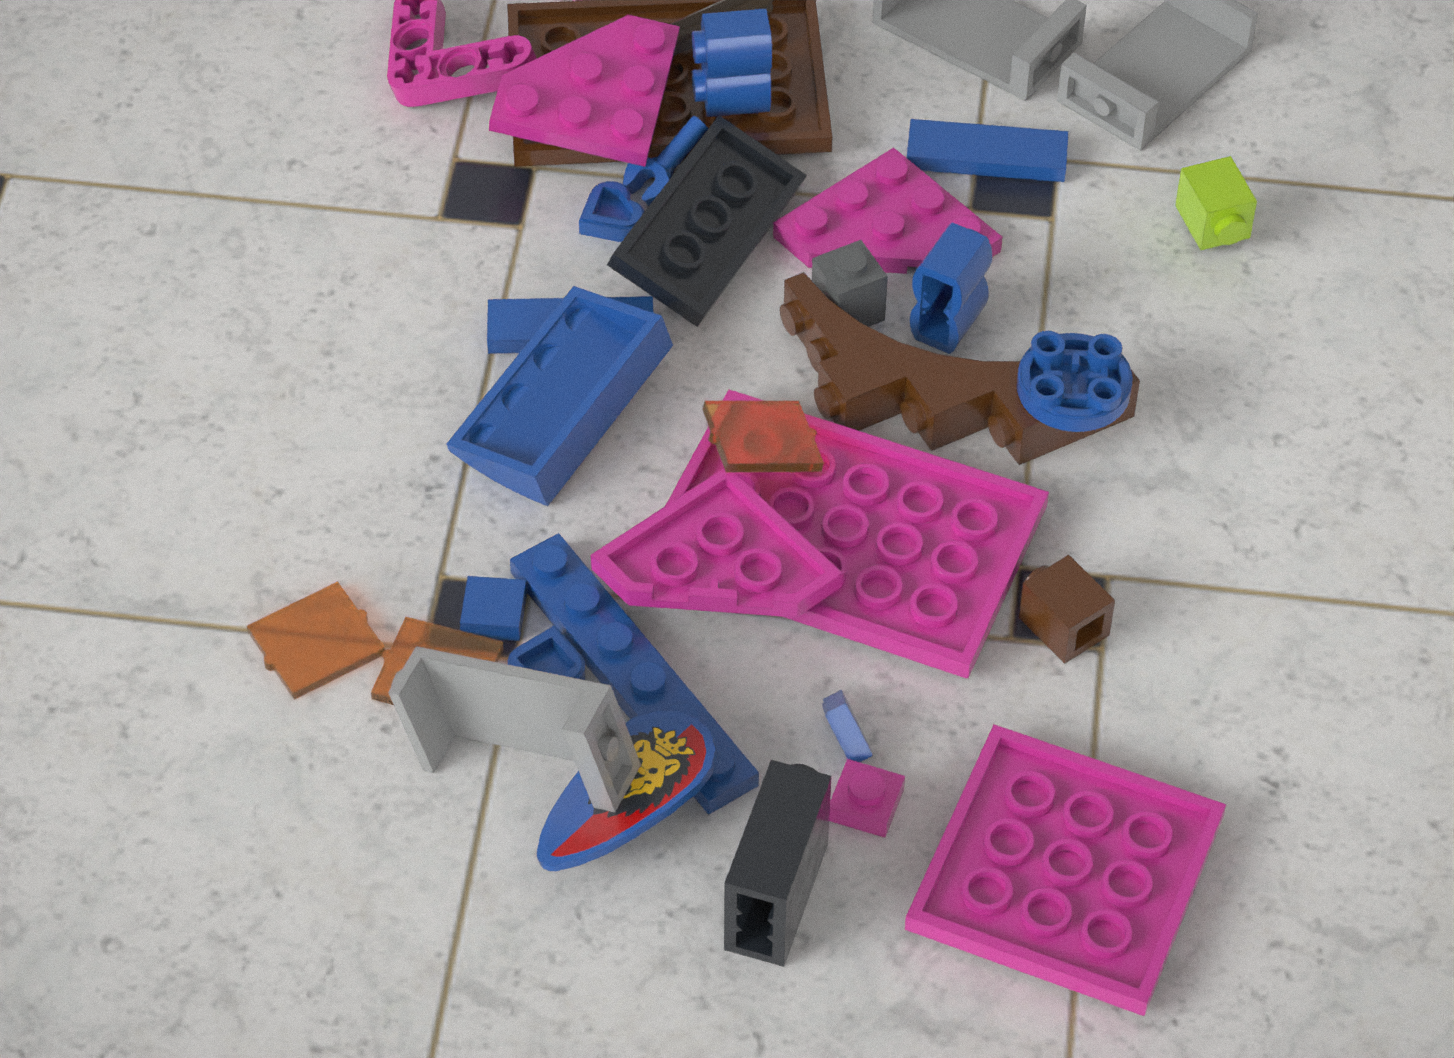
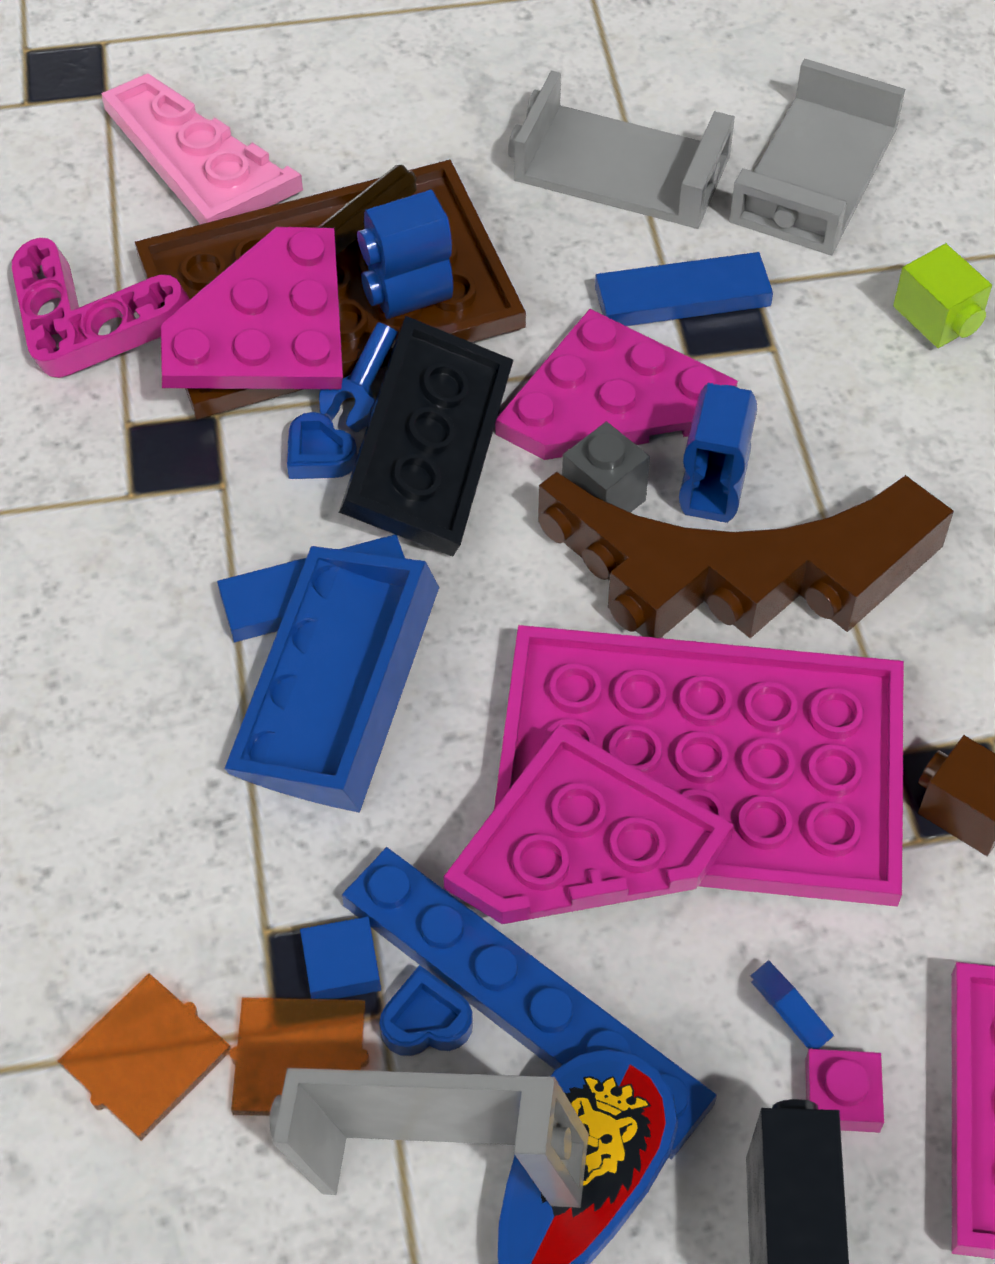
camera: 15 degrees left, 5 degrees up
(762, 436) = (581, 677): clear orange piece -> none
(1074, 380) = (892, 529): blue tile -> none

